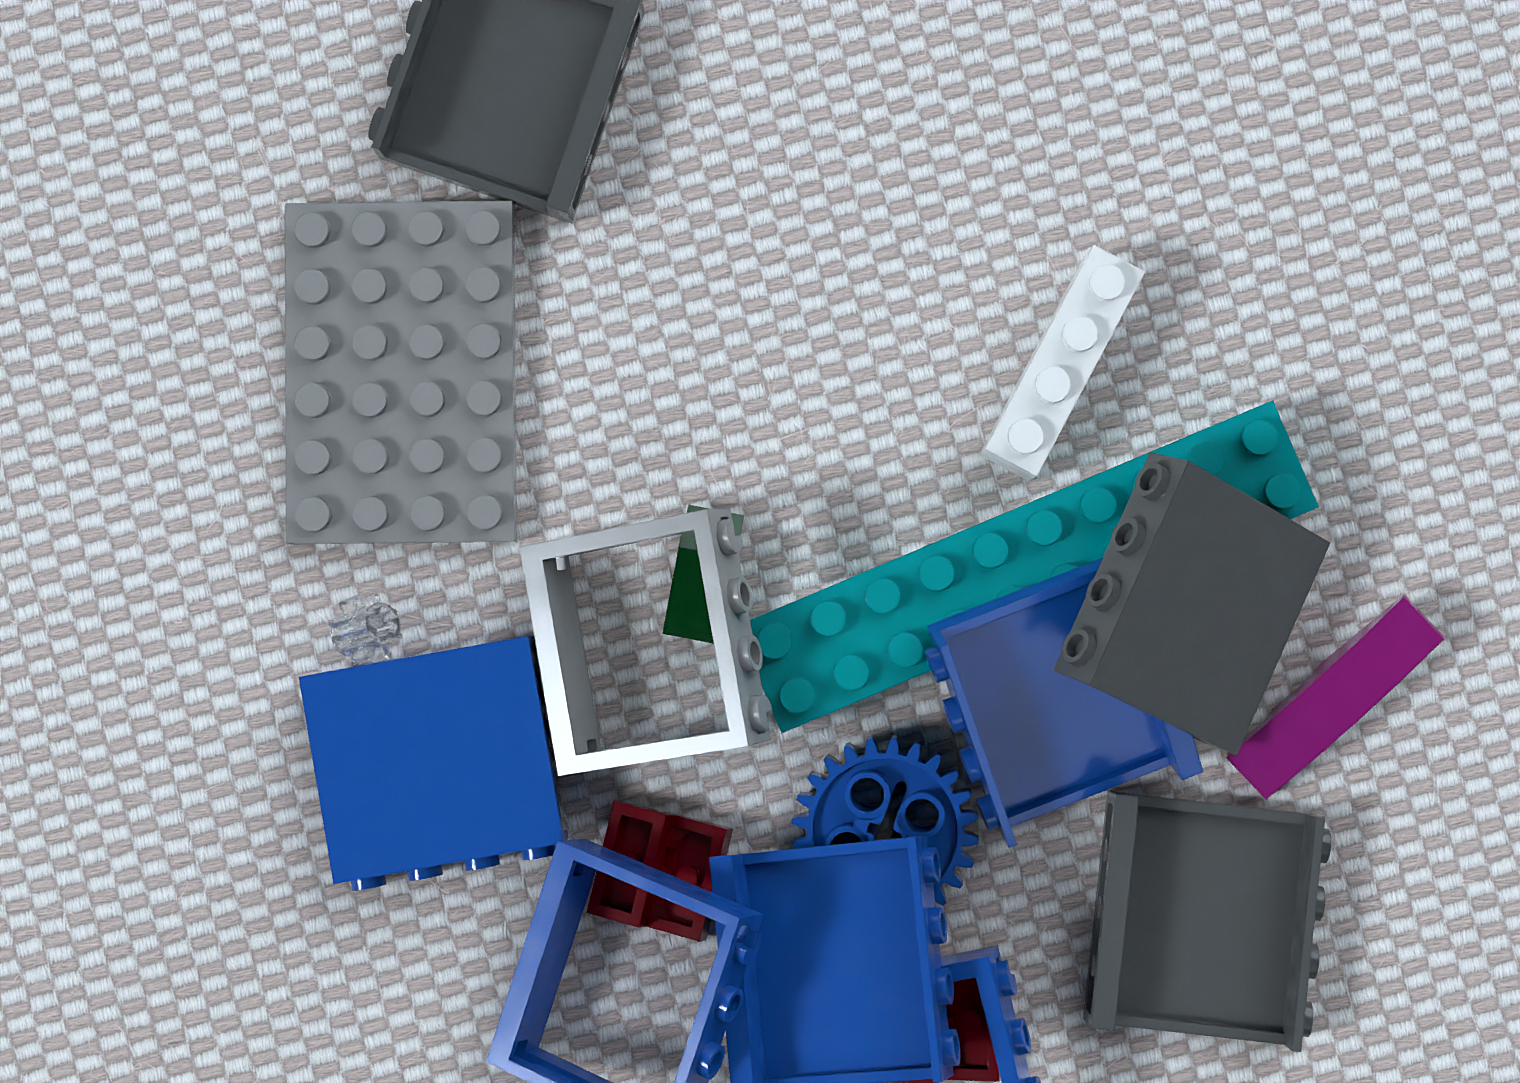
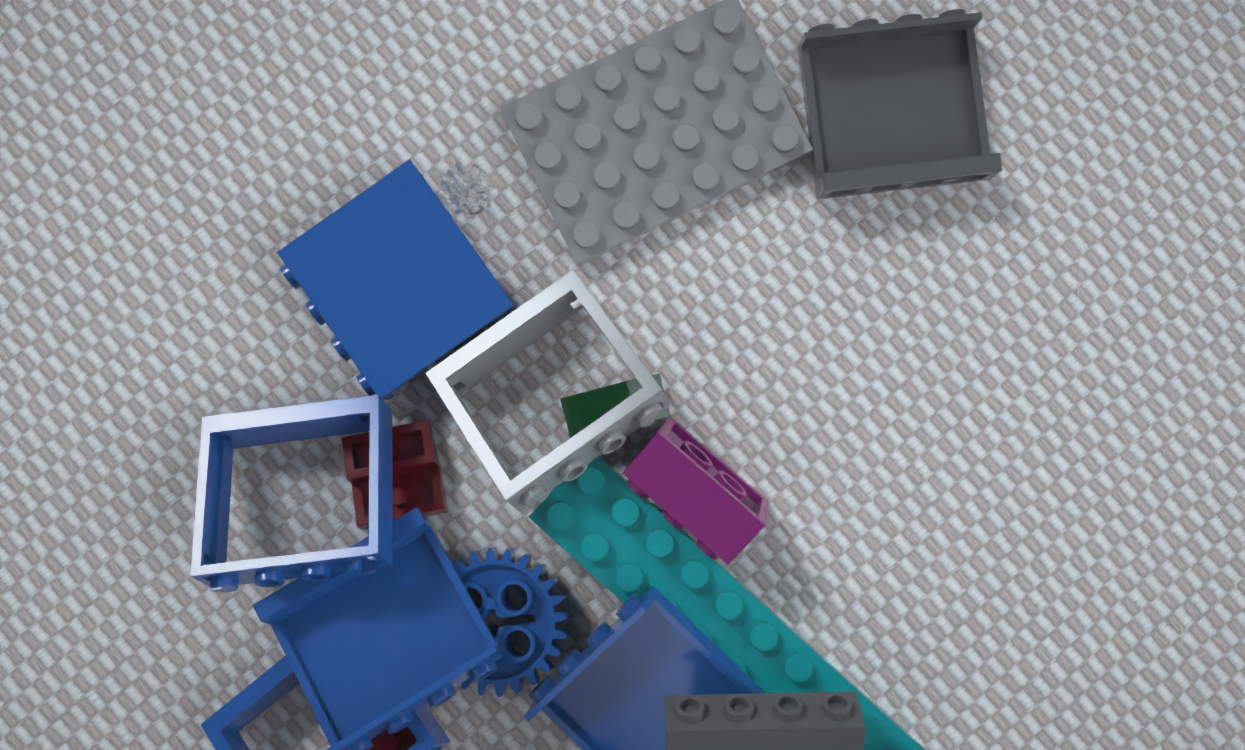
camera: 60 degrees right, 0 degrees up
(844, 524) = (697, 491): none -> magenta slope
(1062, 363) = (886, 591): white brick -> none

